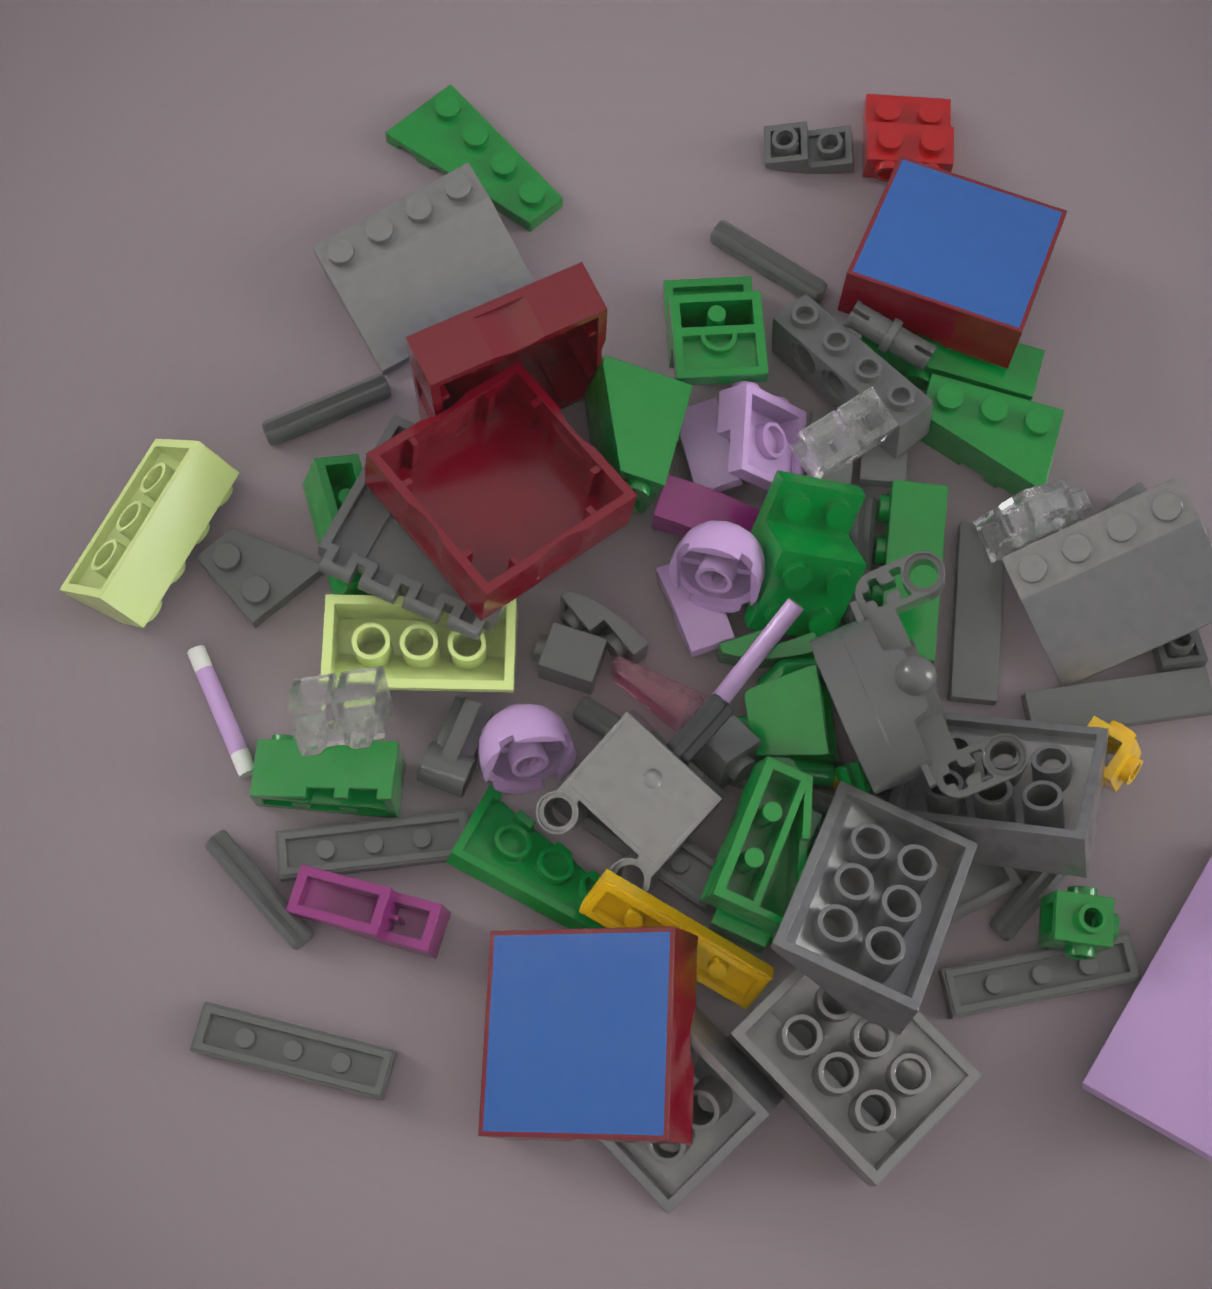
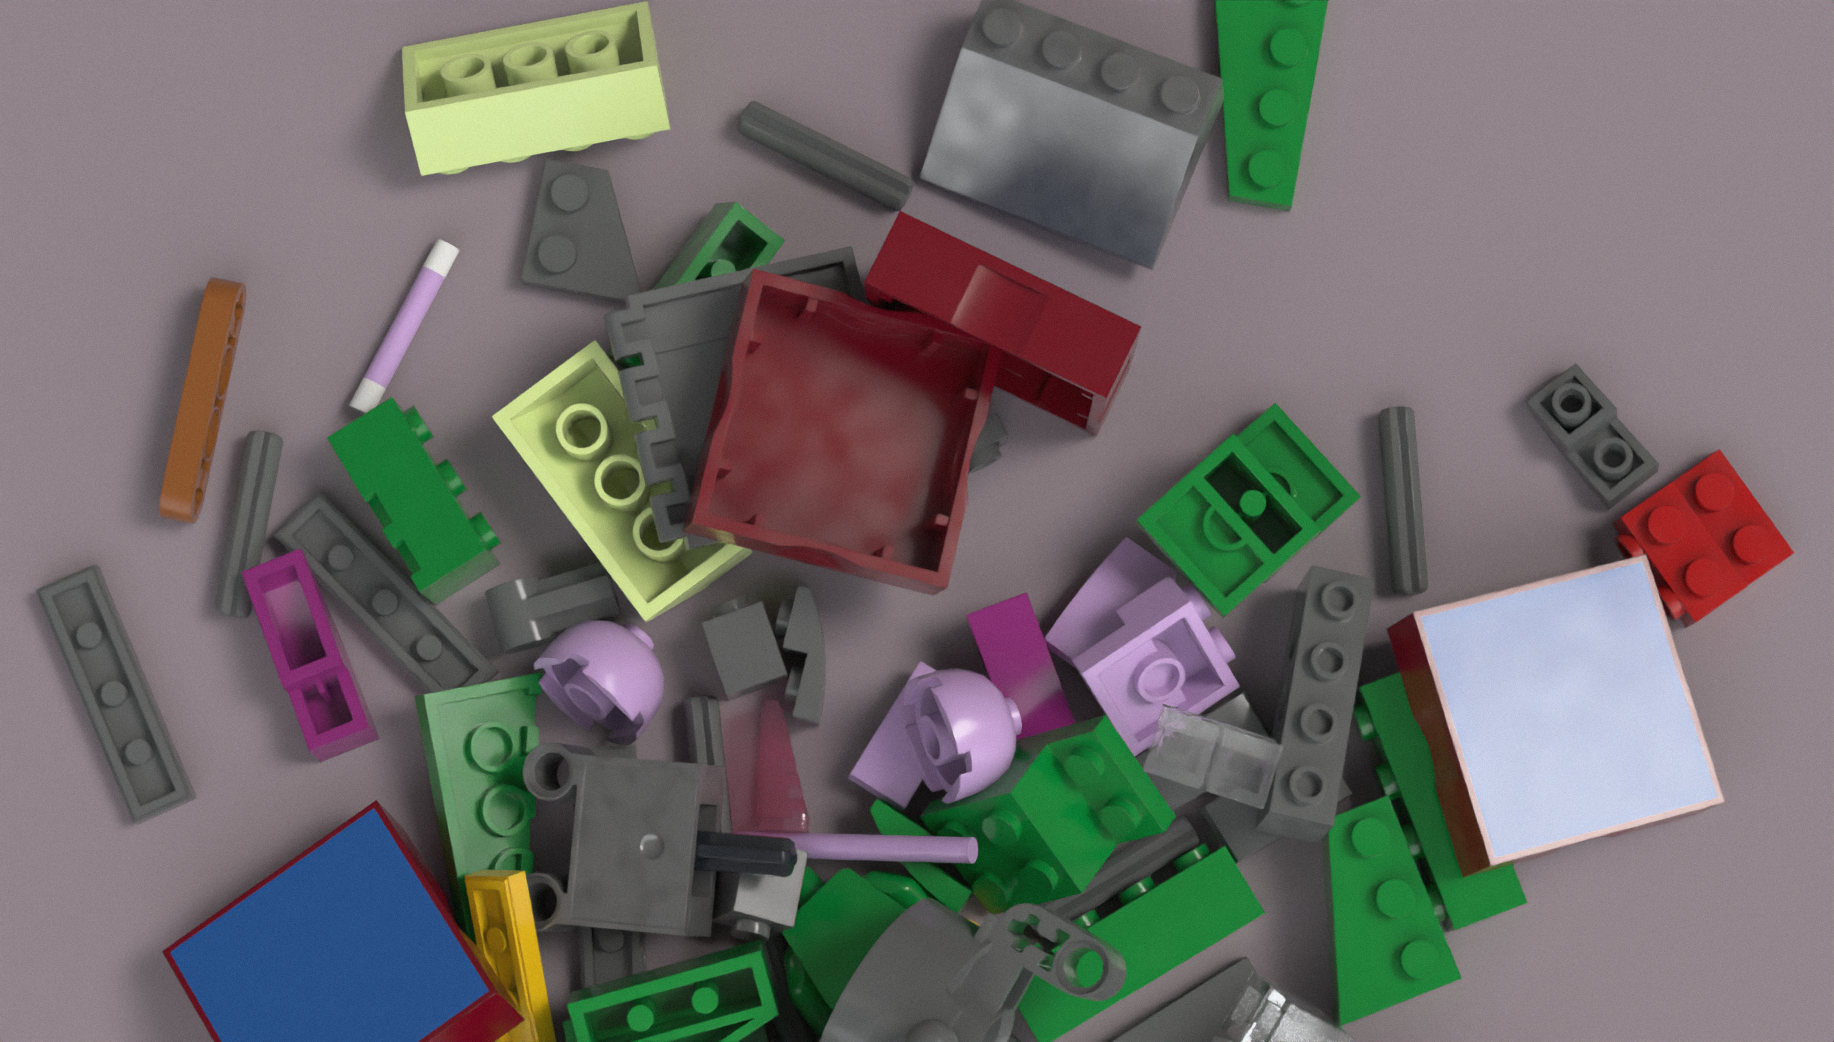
camera: 60 degrees right, 10 degrees up
(163, 858) = (202, 400): none -> dark orange beam
(339, 711) = (474, 461): clear hips -> none
(636, 423) = (1046, 520): green slope -> none
(890, 335) = (1392, 715): dark grey pin -> none

